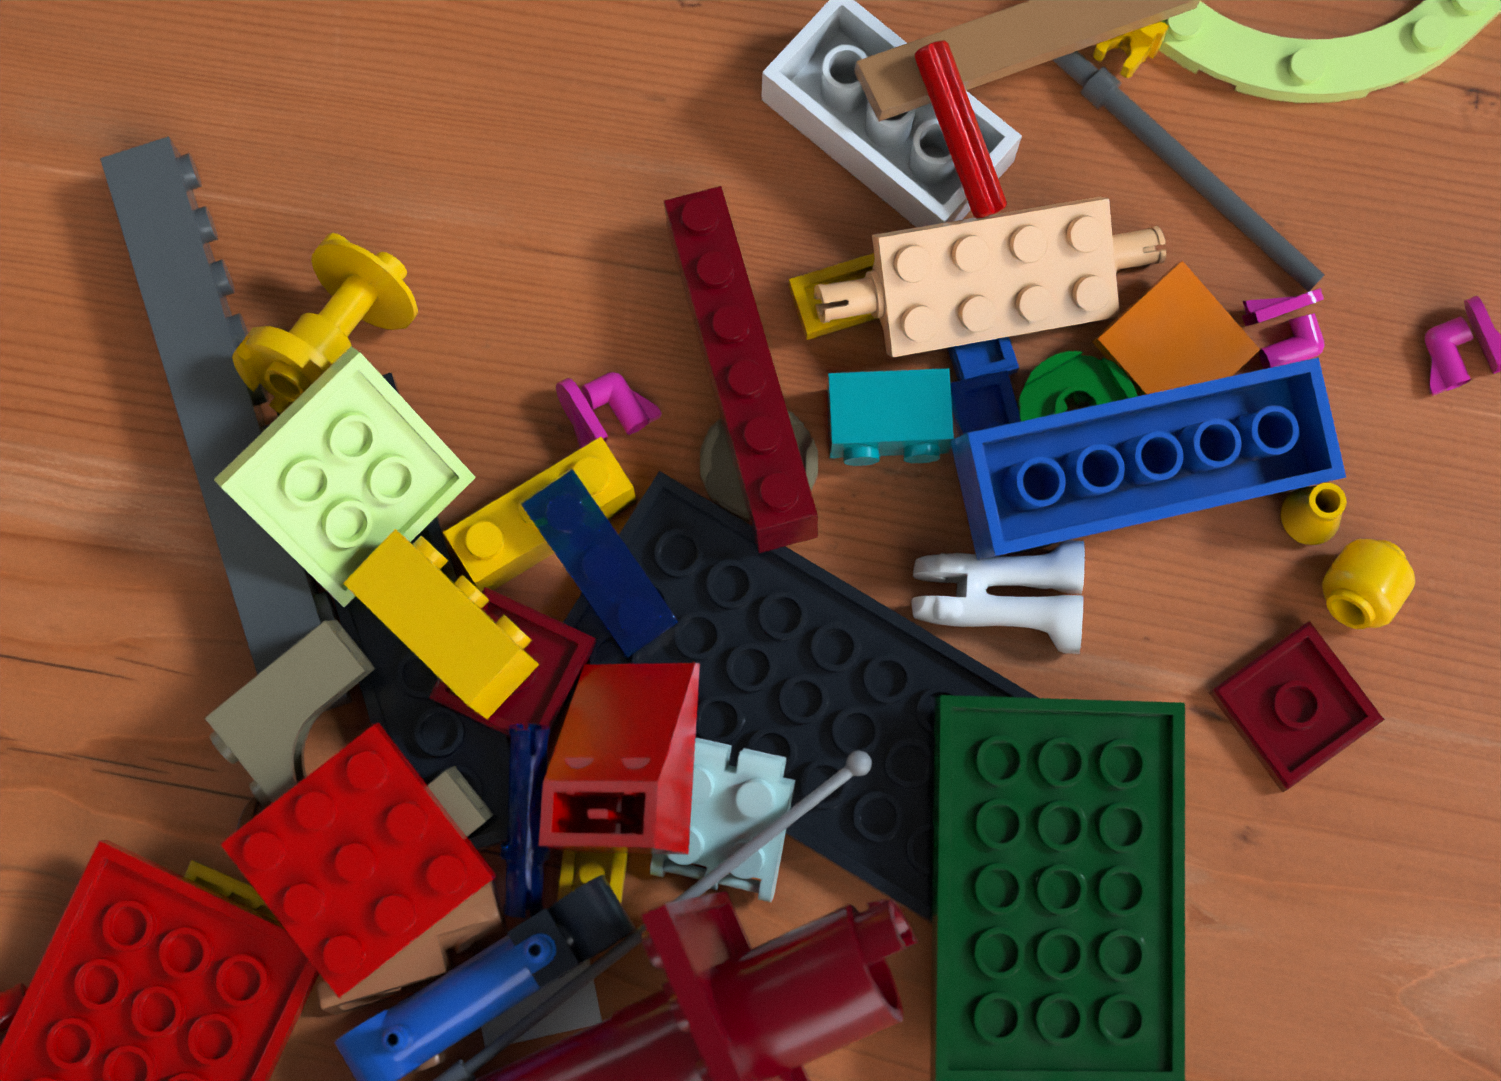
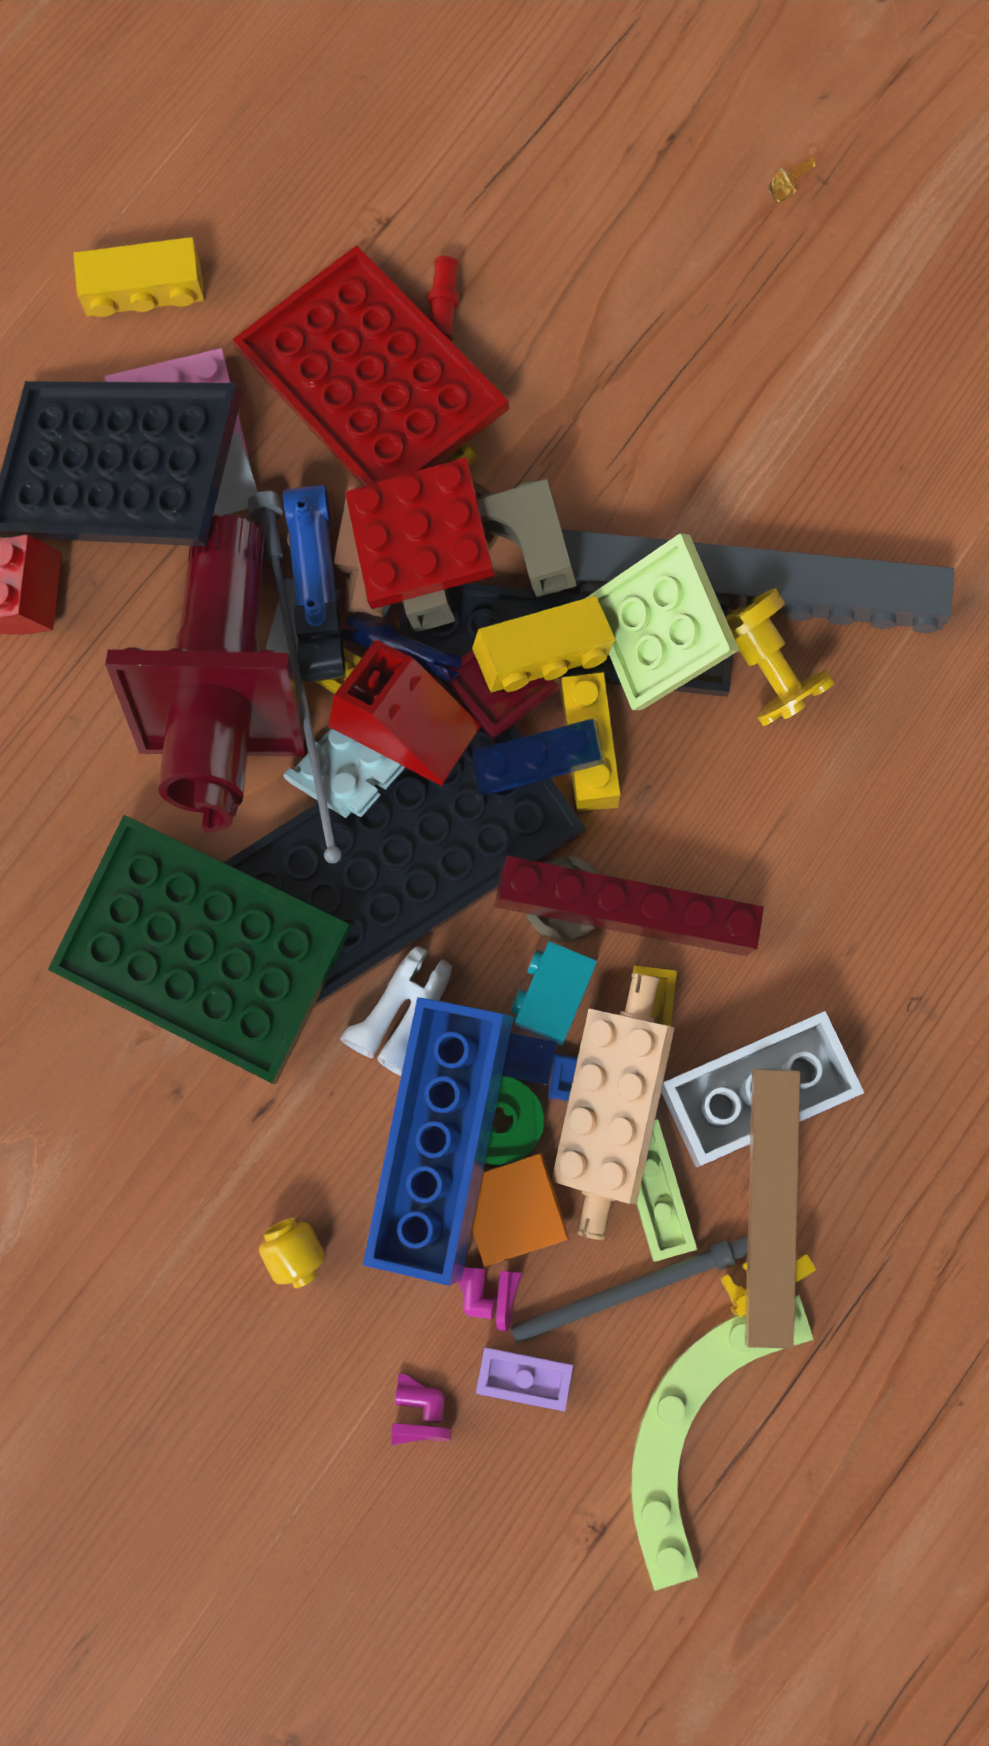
camera: 120 degrees right, 0 degrees up
(629, 407) = (641, 832): dark pink piece -> none
(960, 129) = (719, 1117): red axle -> none
(1088, 169) = (662, 1205): none -> yellowish green plate
(1296, 706) = (239, 1166): dark red tile -> none
(1305, 520) = (357, 1227): yellow cone -> none
(1361, 244) = (524, 1379): none -> lavender plate

